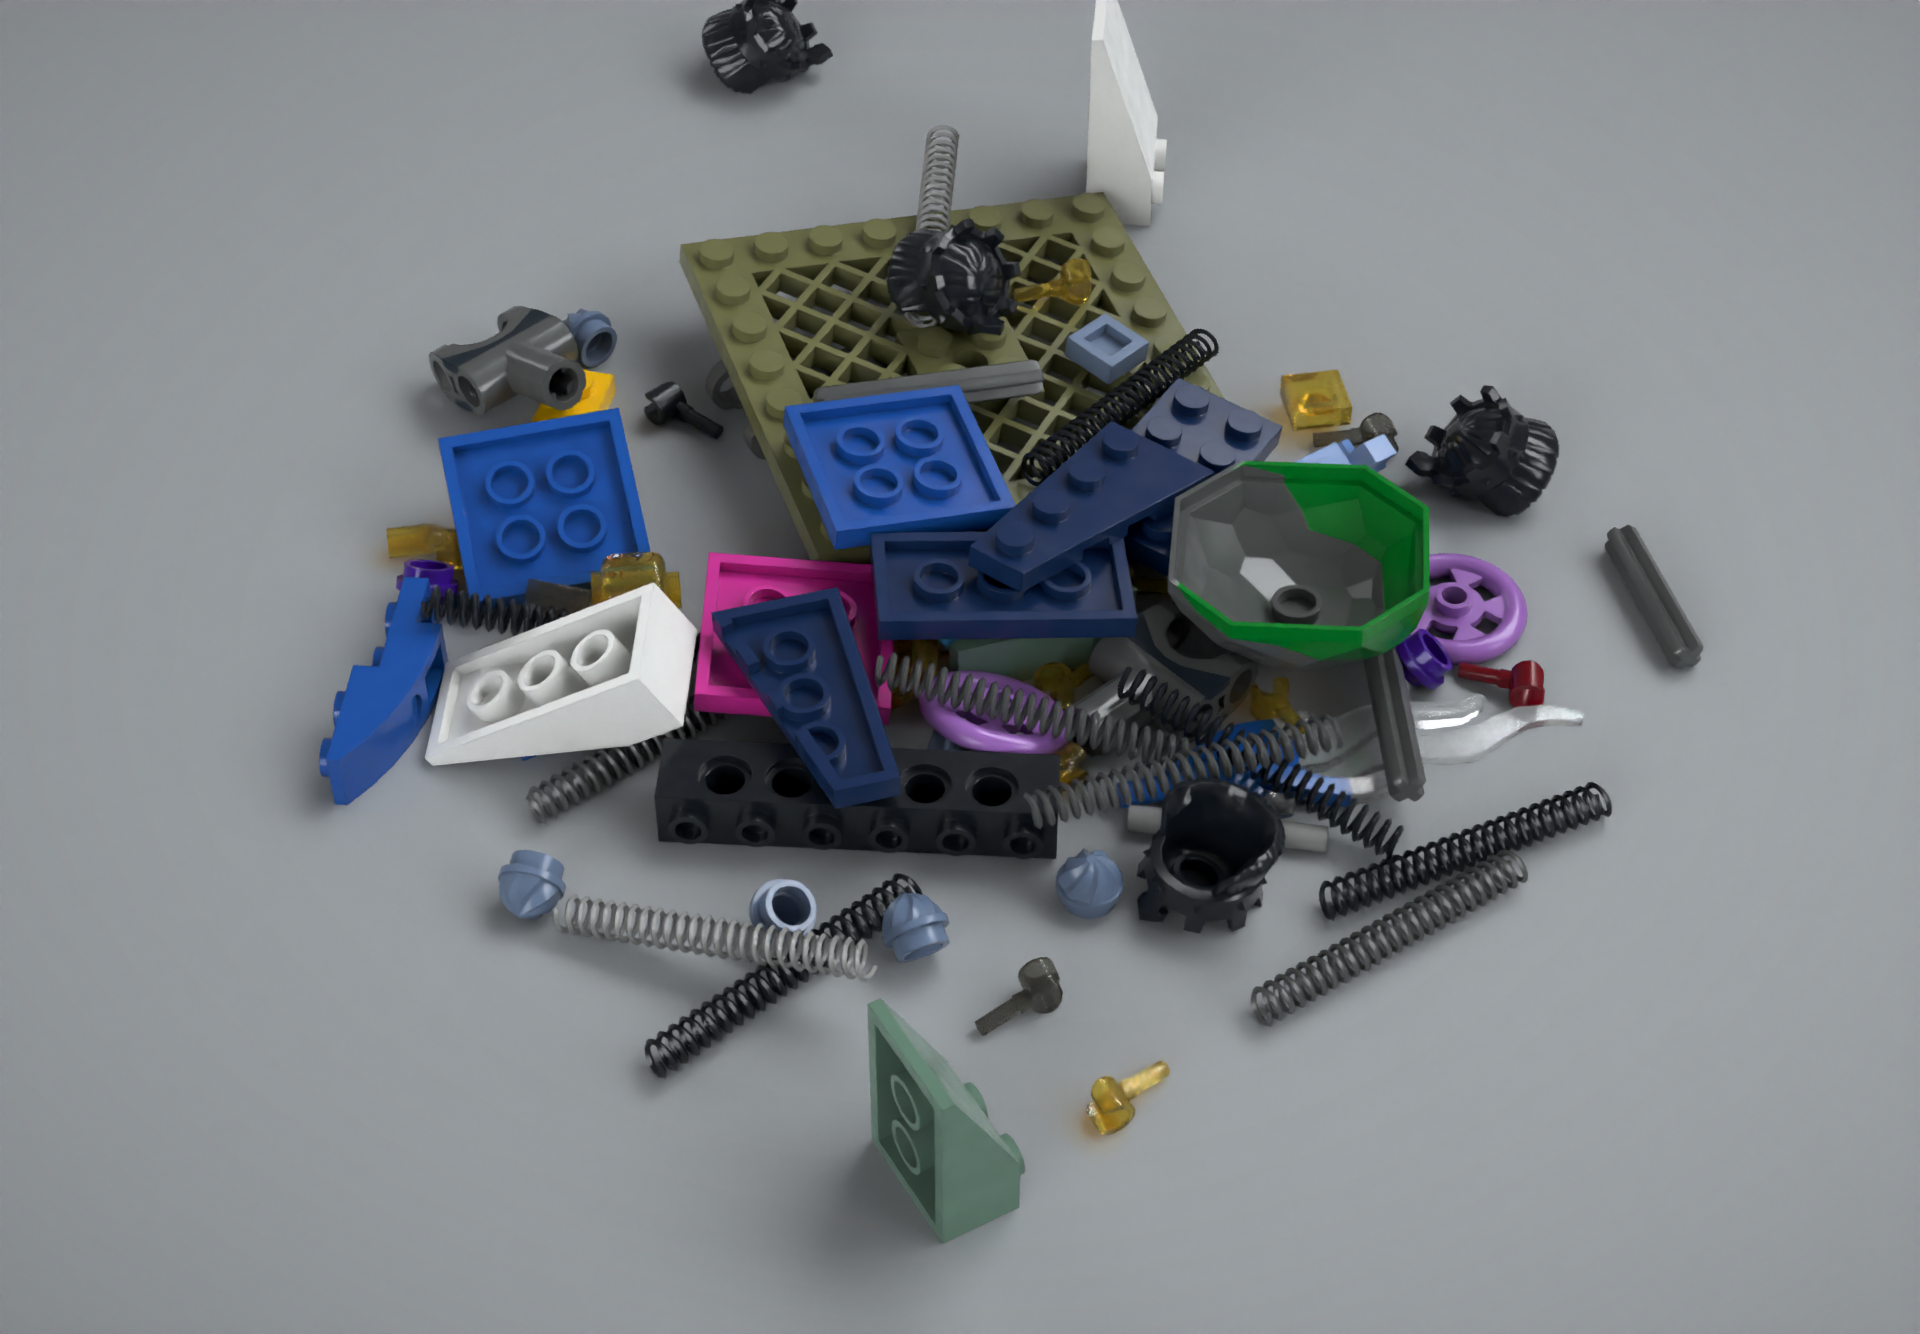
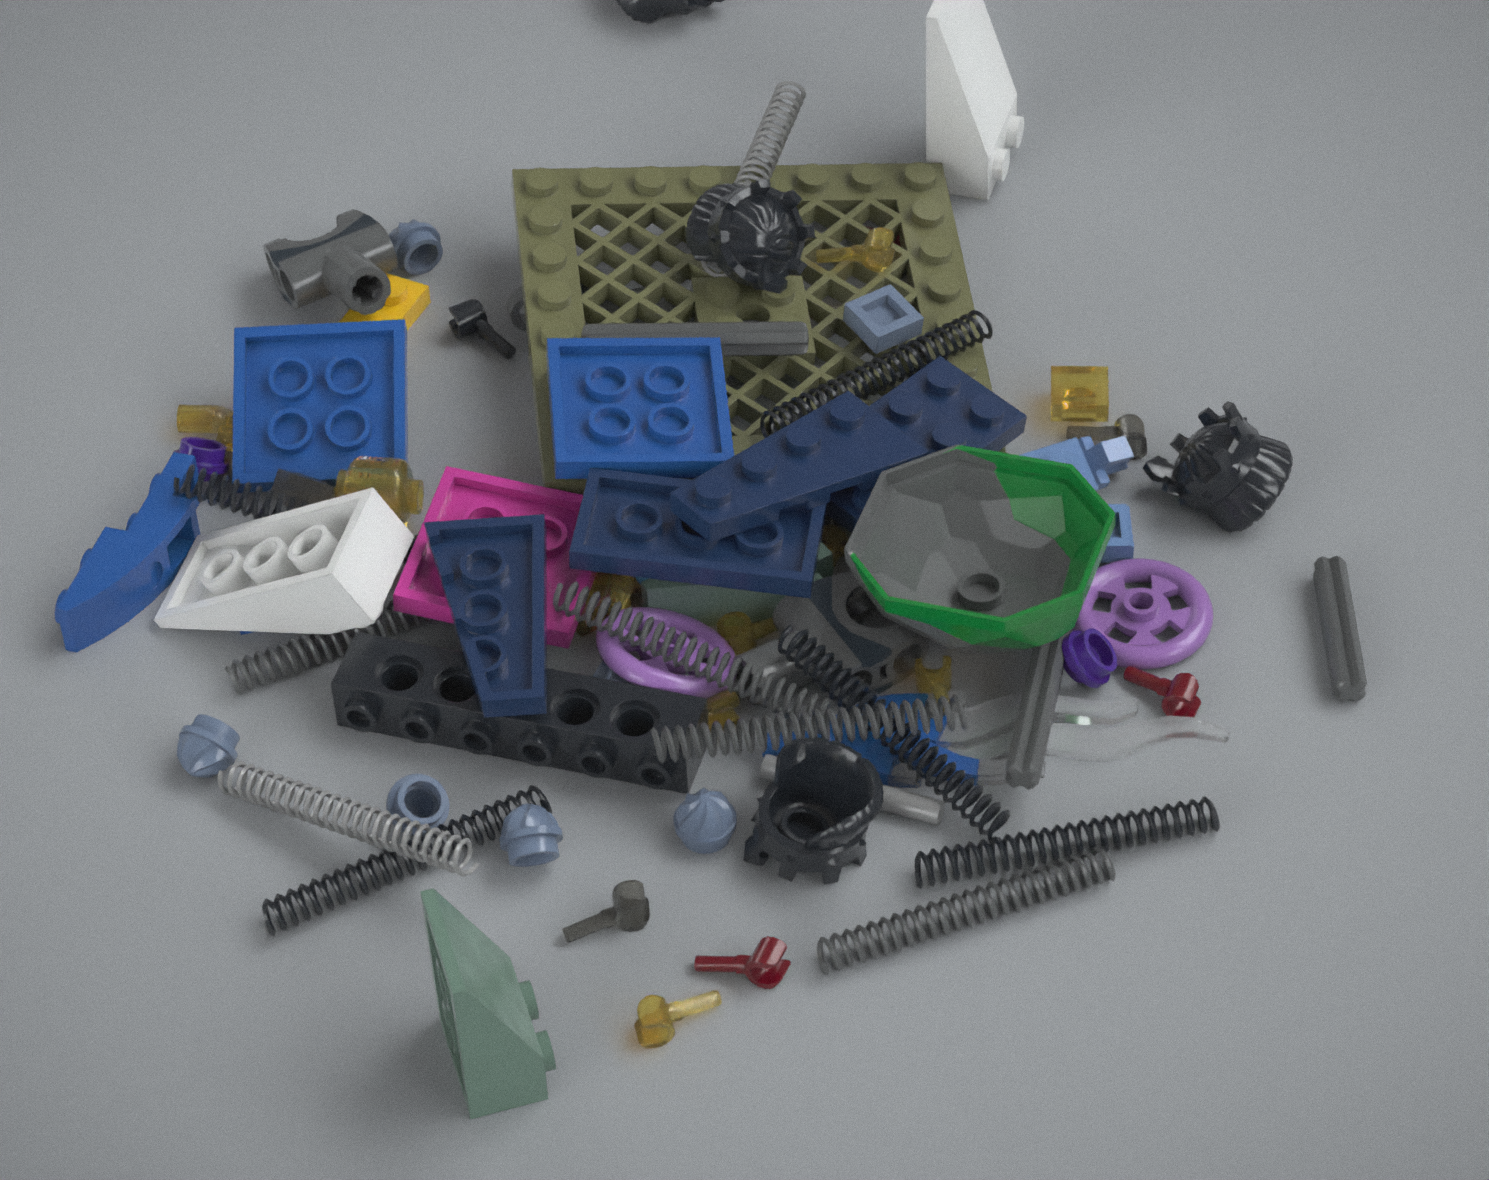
camera: 15 degrees right, 0 degrees up
(1203, 1028) = (762, 968): none -> dark red hand

